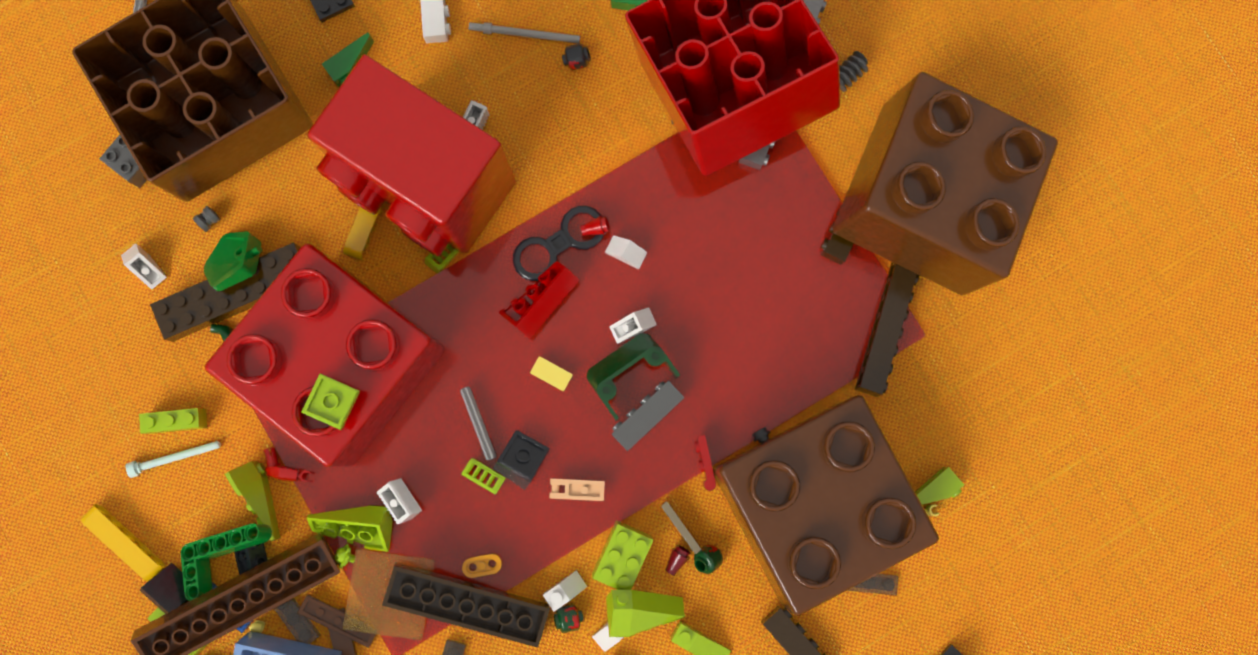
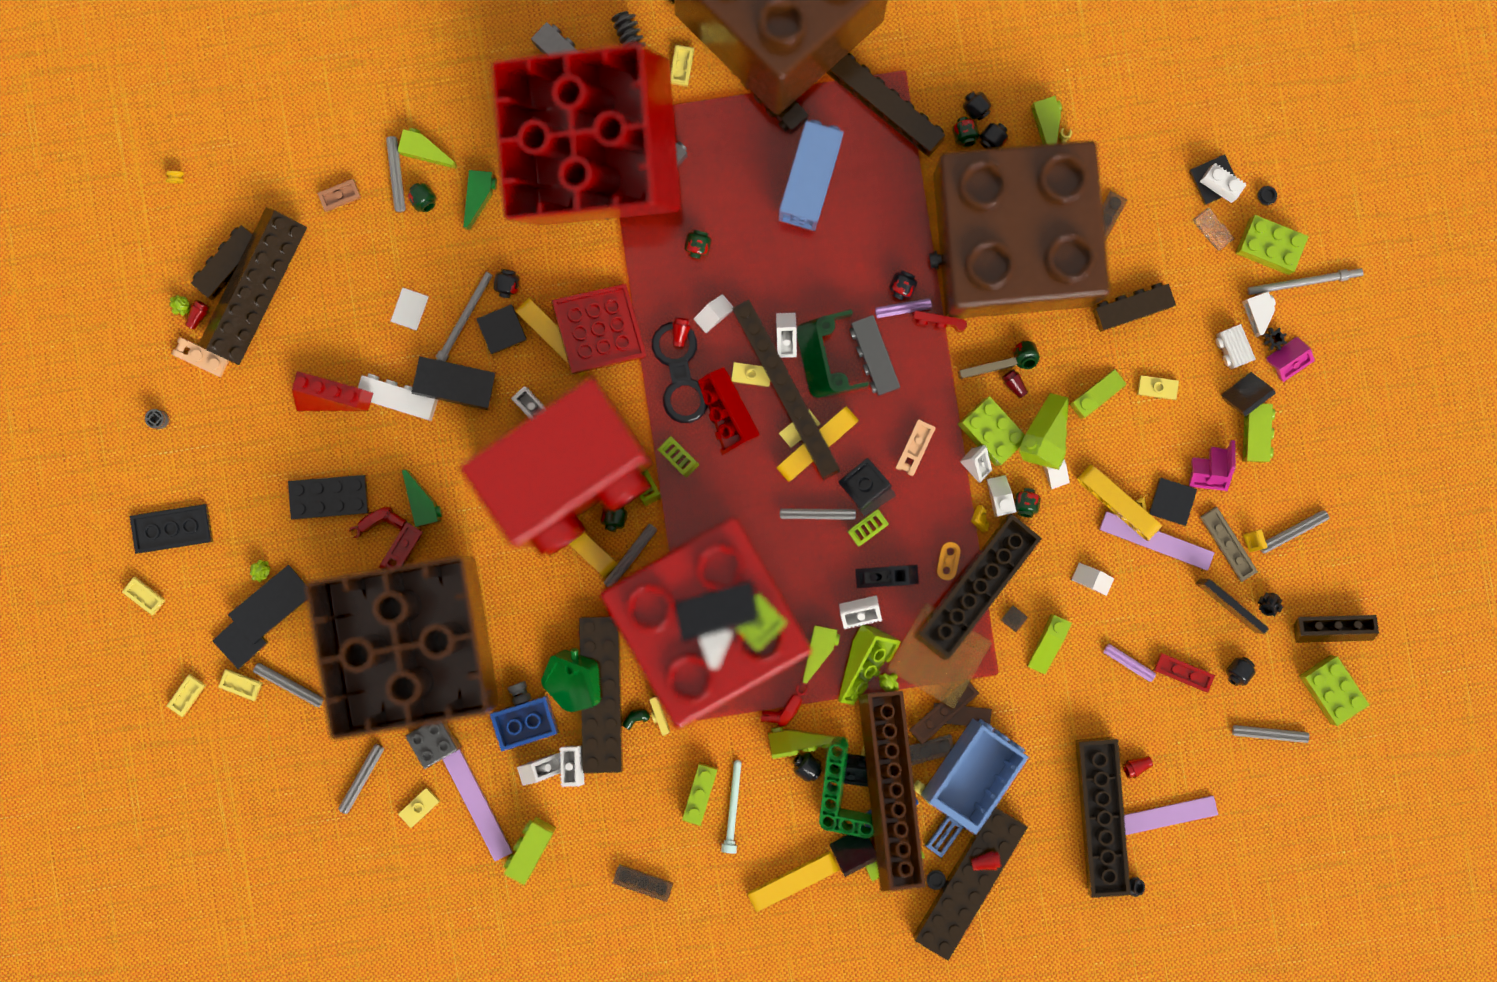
camera: 70 degrees left, 5 degrees up
(60, 284) = (528, 850): none -> lime brick
(69, 172) = (419, 807): none -> light yellow plate
(71, 402) = (642, 883): none -> clear smoke plate
(73, 110) = (361, 778): none -> light grey axle
(89, 224) = (477, 805): none -> lavender tile
(153, 291) = (571, 766): none -> white brick
(178, 233) = (524, 723): none -> blue brick
(235, 512) = (807, 767): none -> black head
(296, 368) = (715, 647): none -> white slope
(300, 61) = (402, 546): none -> red plate
(321, 32) = (378, 517): none -> red arm
(325, 357) = (717, 611): none -> black tile
(352, 477) = (822, 645): none -> lime slope
(372, 267) = (630, 556): none -> light grey axle
(398, 239) = (613, 520): none -> dark green head
(444, 514) = (887, 576): none -> black slope
(465, 45) = (453, 383): none -> black tile
(479, 289) = (689, 468): none -> lime slope
(533, 70) = (501, 329): none -> black tile
(535, 579) = (979, 519): none -> yellow tile
(543, 396) = (831, 433): none -> yellow beam
(545, 119) = (543, 326): none -> yellow beam
(567, 153) = (598, 329): none -> red plate
(579, 346) = (786, 390): none -> dark brown brick
(583, 309) = (750, 375): none -> light yellow plate
(587, 555) = (977, 462): none -> white slope
(683, 210) = (697, 243): none -> dark green head
(703, 424) = (903, 308): none -> lavender axle
(725, 414) = (903, 285): none -> black head
(790, 284) = (810, 175): none -> medium blue container
(840, 131) = (681, 65): none -> light yellow plate
(893, 415) = (965, 132): none -> dark green head
(901, 443) = (994, 136): none -> black head
(922, 415) = (977, 105): none -> black head

